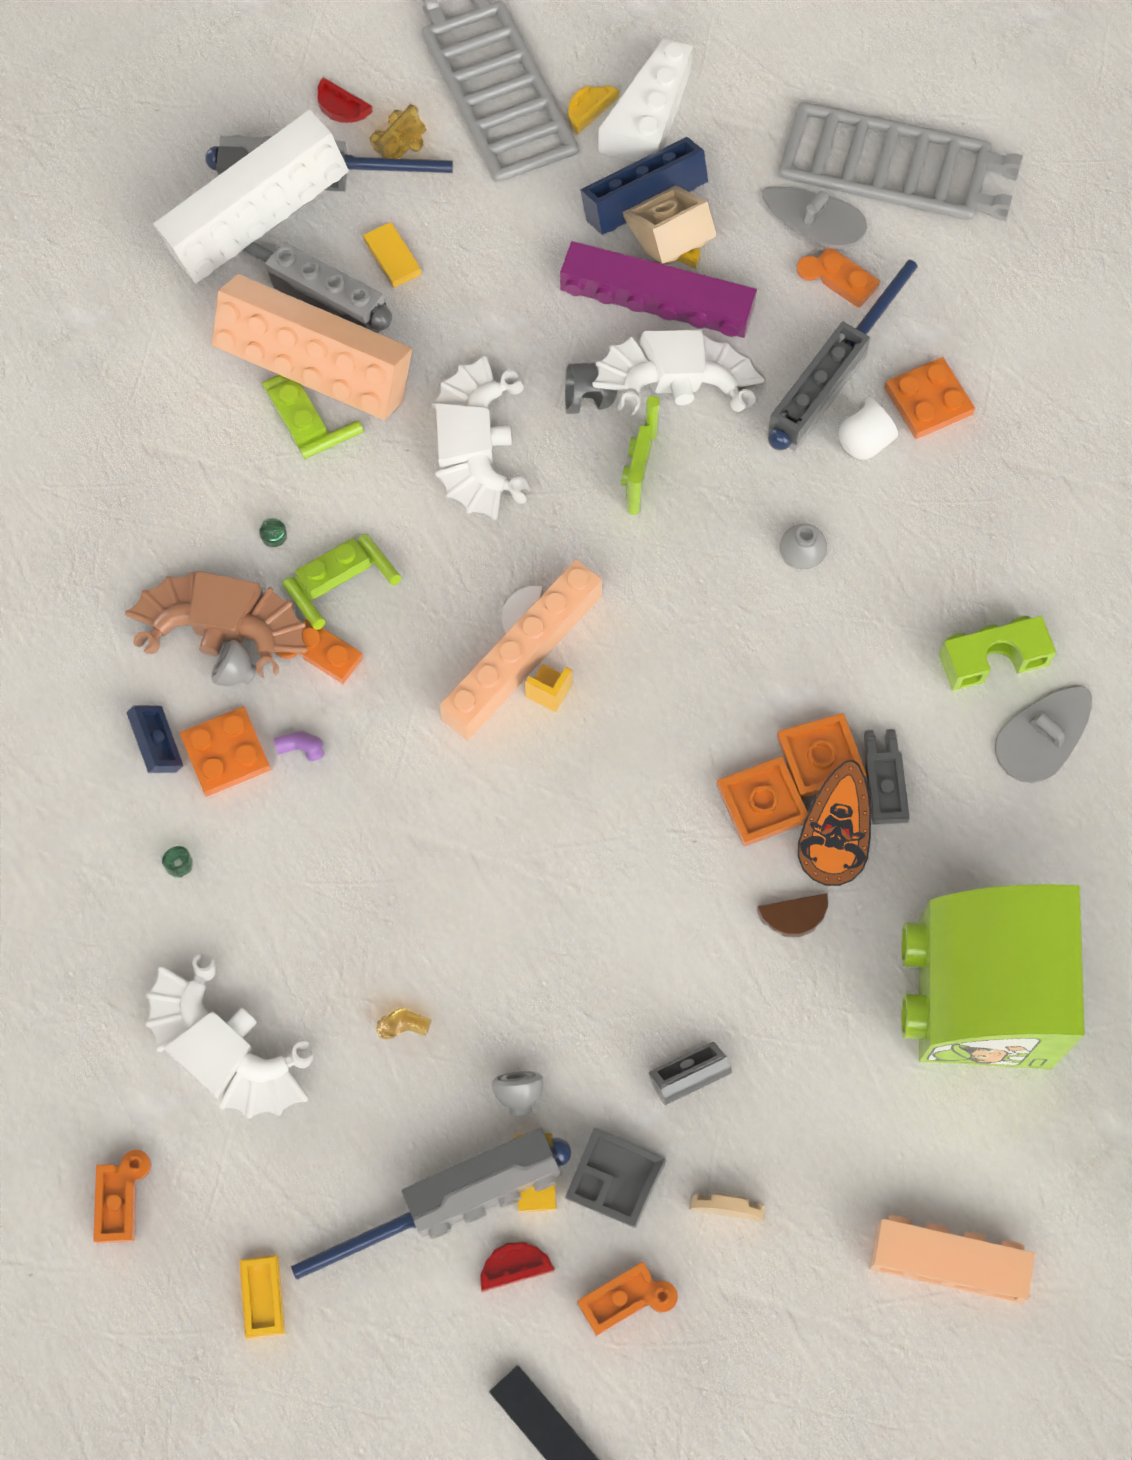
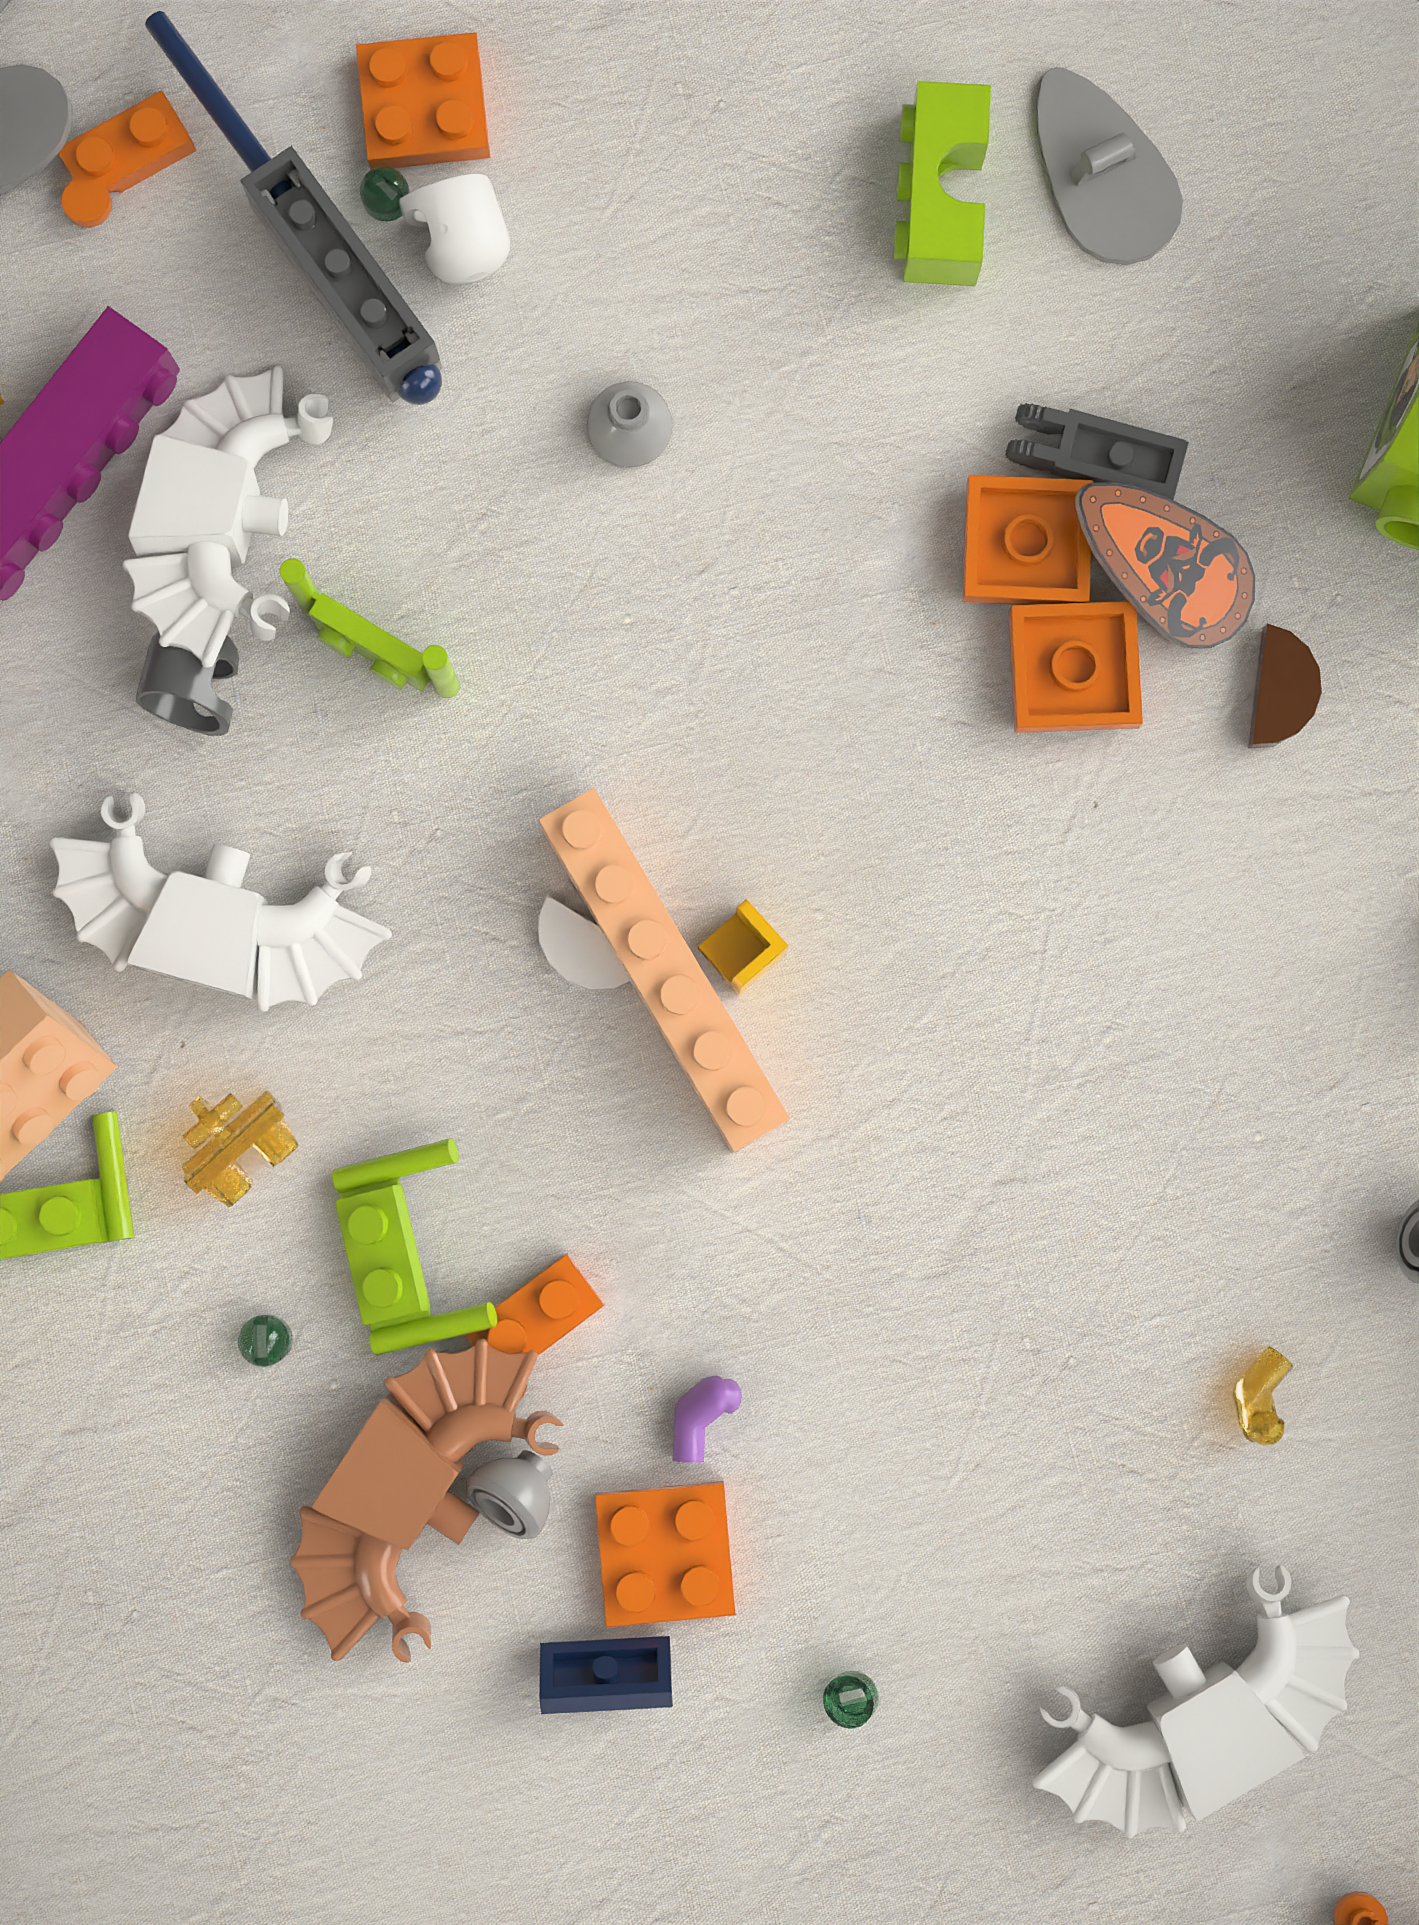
camera: 75 degrees left, 15 degrees up
(350, 480) = (215, 1163): none -> clear yellow hips
(877, 387) = (376, 200): none -> clear green hinge

